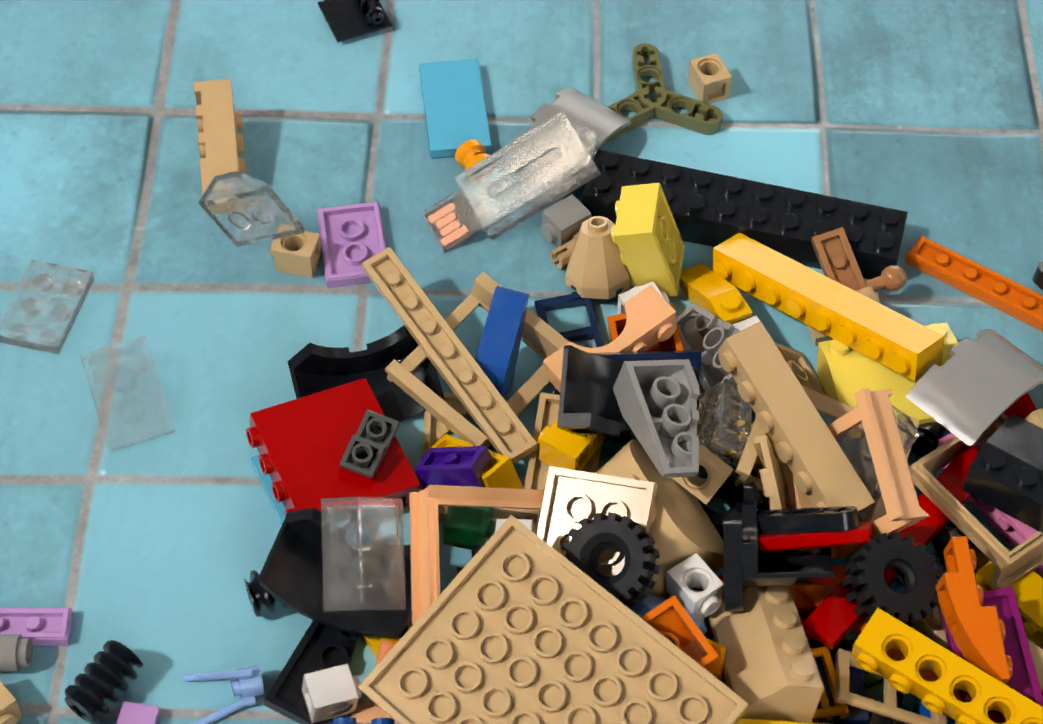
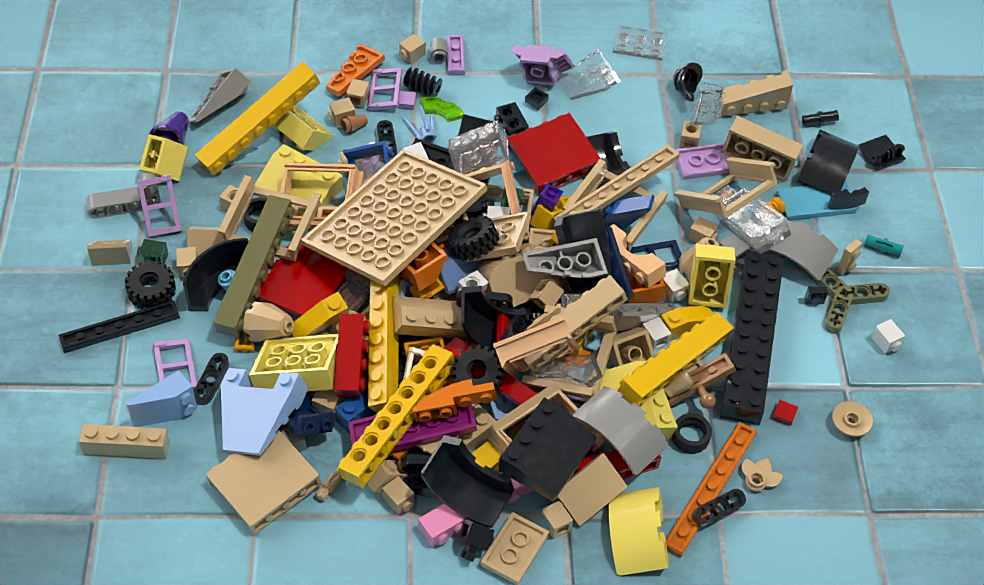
camera: 85 degrees right, 0 degrees up
(98, 458) = (542, 64): none -> lavender slope
(167, 656) = (447, 110): none -> clear neon green tile
(168, 247) = (687, 79): none -> black piece
(169, 483) = (536, 98): none -> black plate
(232, 521) = (512, 118): none -> black brick
(273, 76) = (820, 118): none -> black pin
(355, 149) = (757, 143): none -> tan brick
(369, 444) = (553, 160): dark grey slope -> none
(387, 69) = (829, 162): none -> black panel
(416, 163) = (739, 169): none -> tan piece
(468, 55) = (847, 200): none -> black slope
(525, 257) = (702, 228): none -> tan brick
(546, 50) = (883, 245): none -> teal pin
(594, 73) = (849, 257): none -> tan plate
(660, 130) = (816, 295): none -> black plate
(709, 78) = (865, 320): tan brick -> none
(739, 56) = (888, 336): none -> white brick
(881, 195) = (785, 412): none -> red tile
(891, 120) = (853, 412): none -> tan dish
(942, 298) = (692, 446): none -> black tyre
(999, 243) = (761, 473): none -> tan plate

